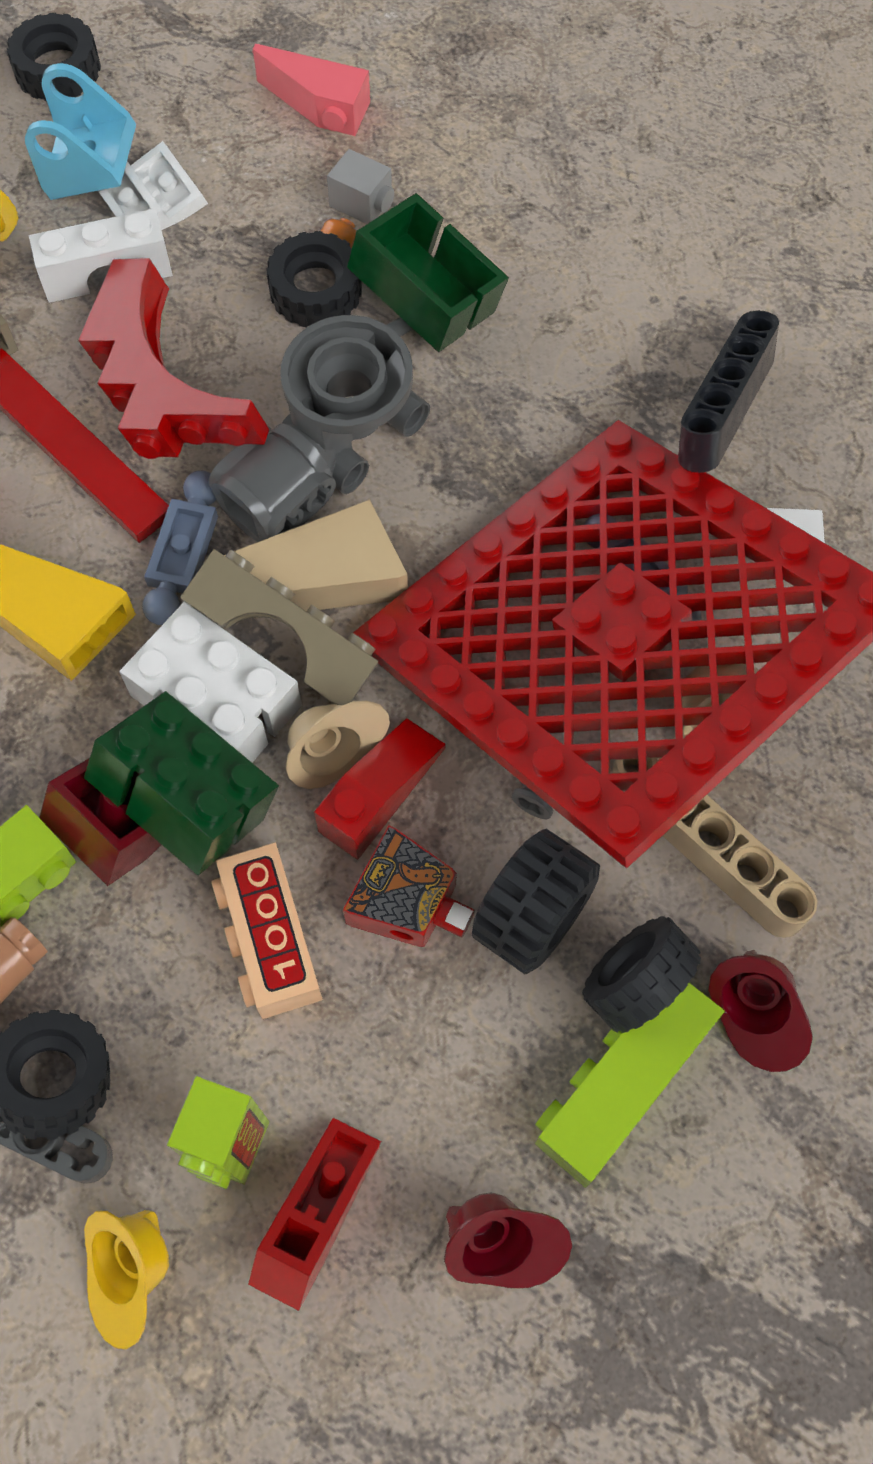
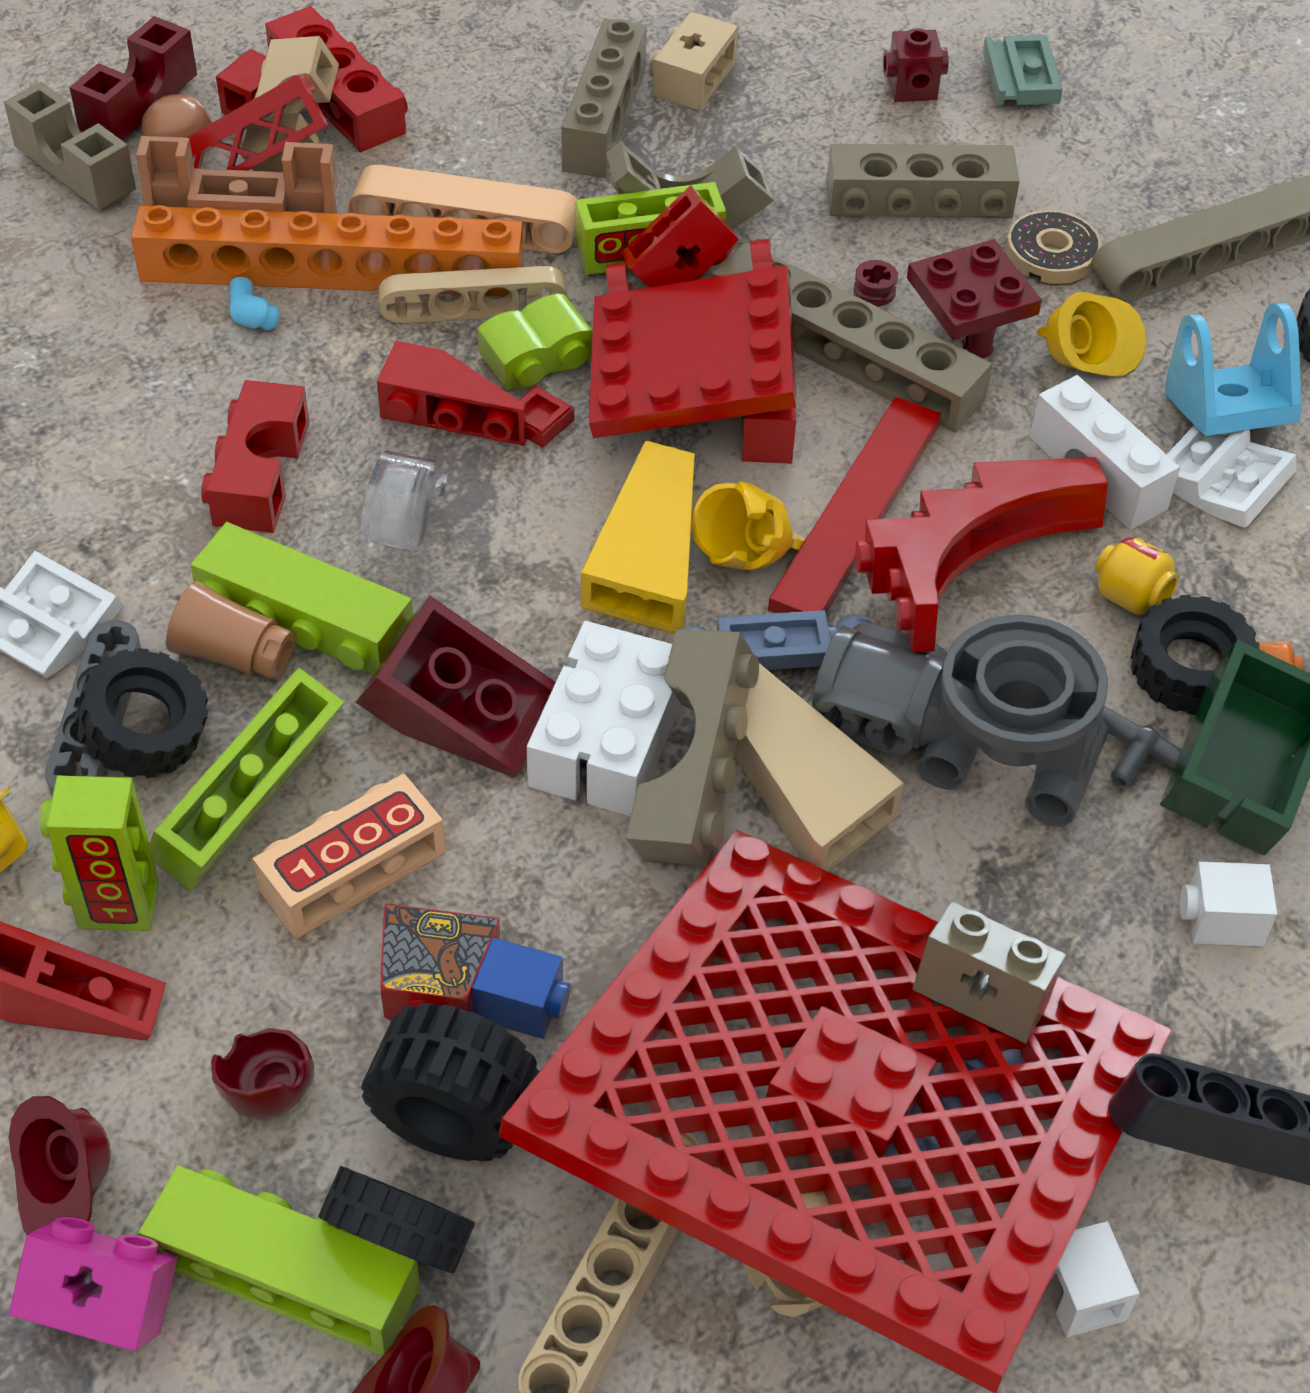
camera: 70 degrees right, 15 degrees down
(65, 525) = (742, 526): none -> yellow helmet
(161, 993) = (244, 779): none -> lime brick
(191, 782) = (476, 710): dark green piece -> none
(232, 282) = (1136, 575): none -> yellow head
(331, 740) = (581, 840): tan piece -> none
(376, 787) = (554, 906): red slope -> none
(448, 827) = (520, 988): none -> blue brick
(459, 1050) = (264, 1073): none -> dark red hair
(535, 344) = (1229, 904): none -> white brick
(563, 501) = (988, 971): none -> dark tan brick
(620, 1231) = (62, 1294): none -> dark pink brick

